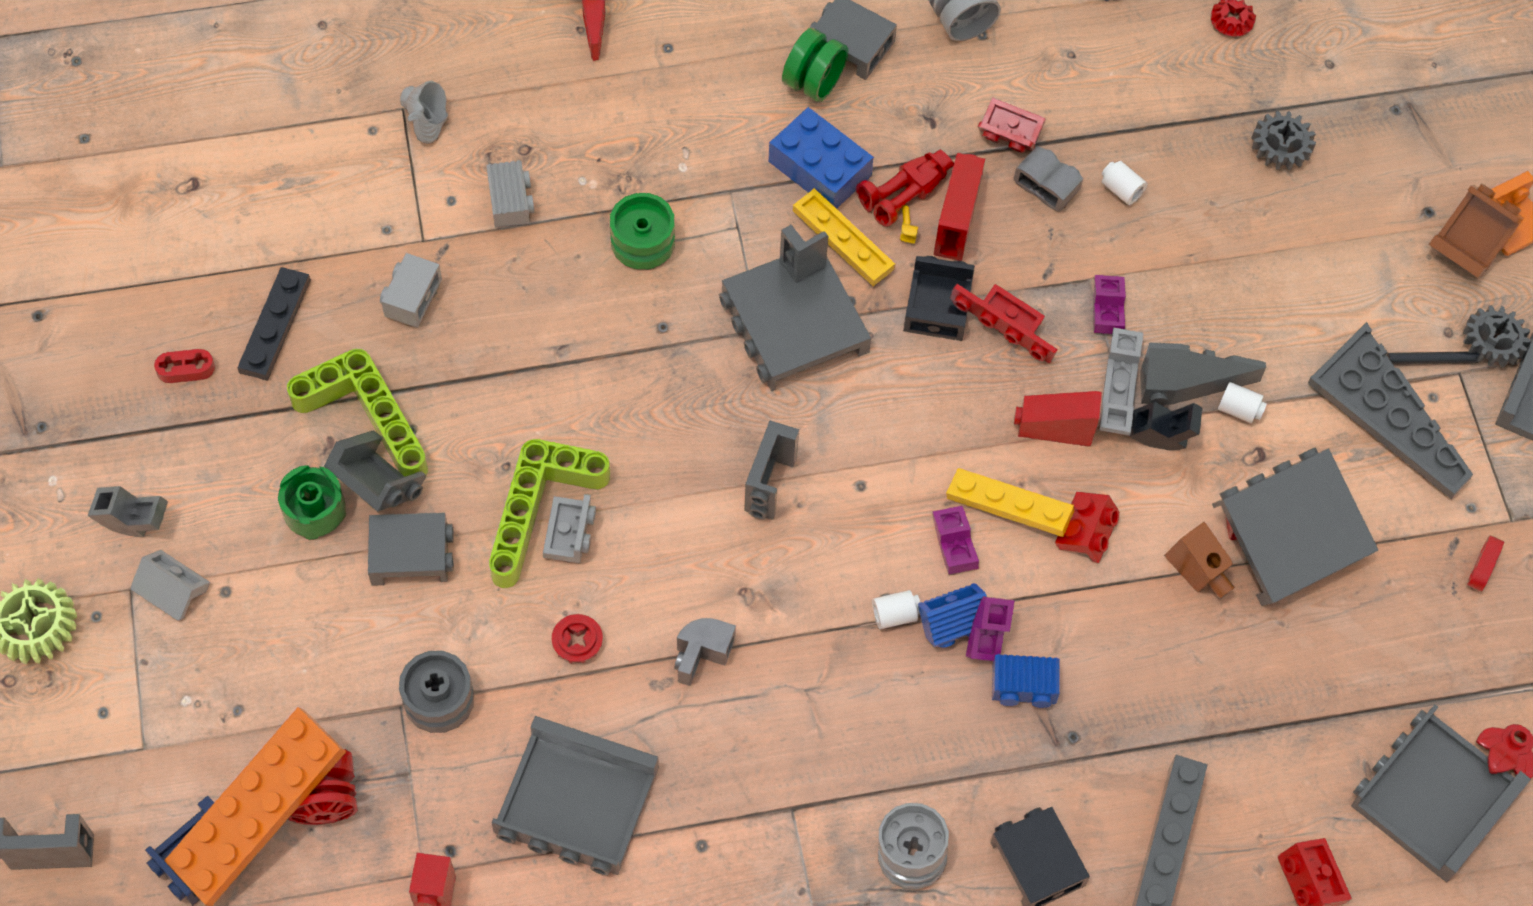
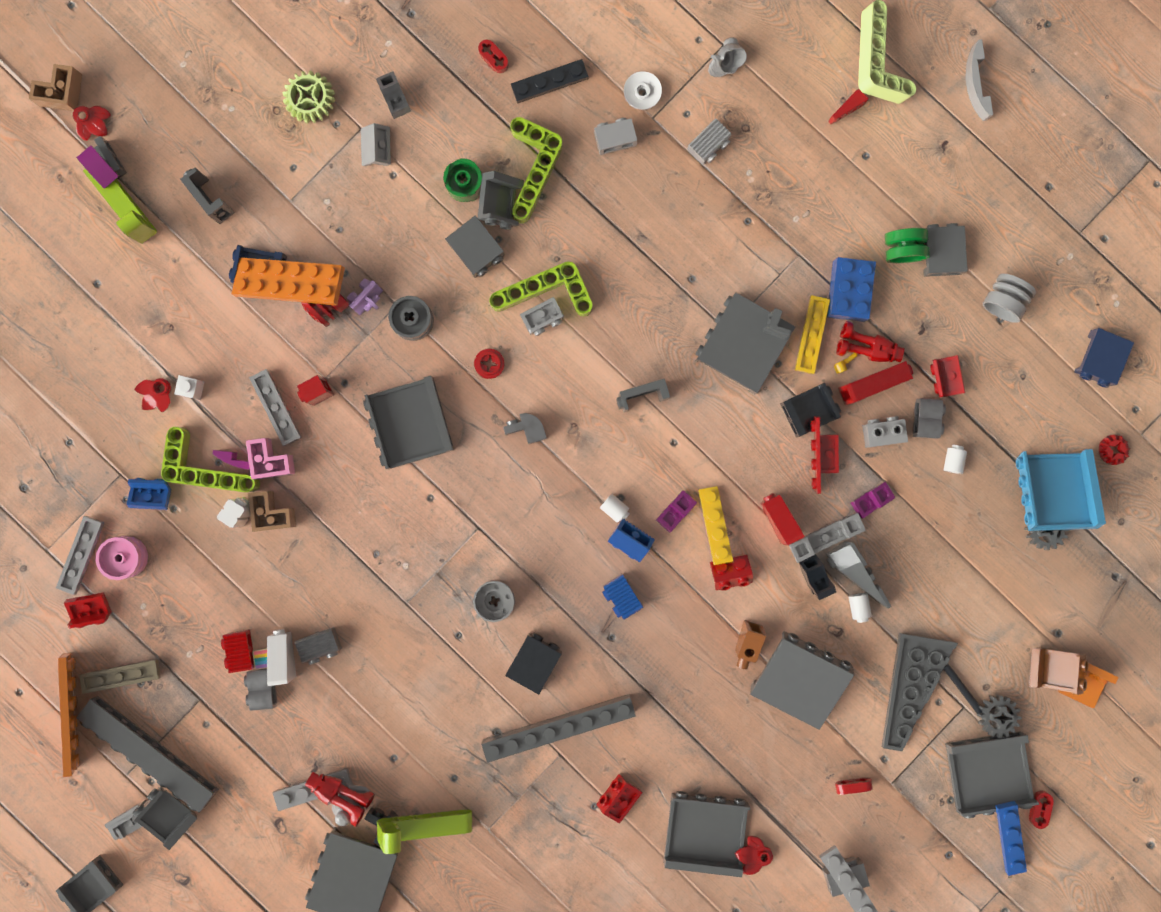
camera: 50 degrees right, 25 degrees up
(363, 732) = (367, 298): none -> lavender hips
(379, 215) = (646, 82): none -> white dish
(642, 231) = (741, 218): green wheel -> none
(988, 628) = (634, 562): magenta slope -> none
(1031, 235) = (885, 433): none -> light grey brick
(1246, 93) = (1060, 491): none -> dark azure panel

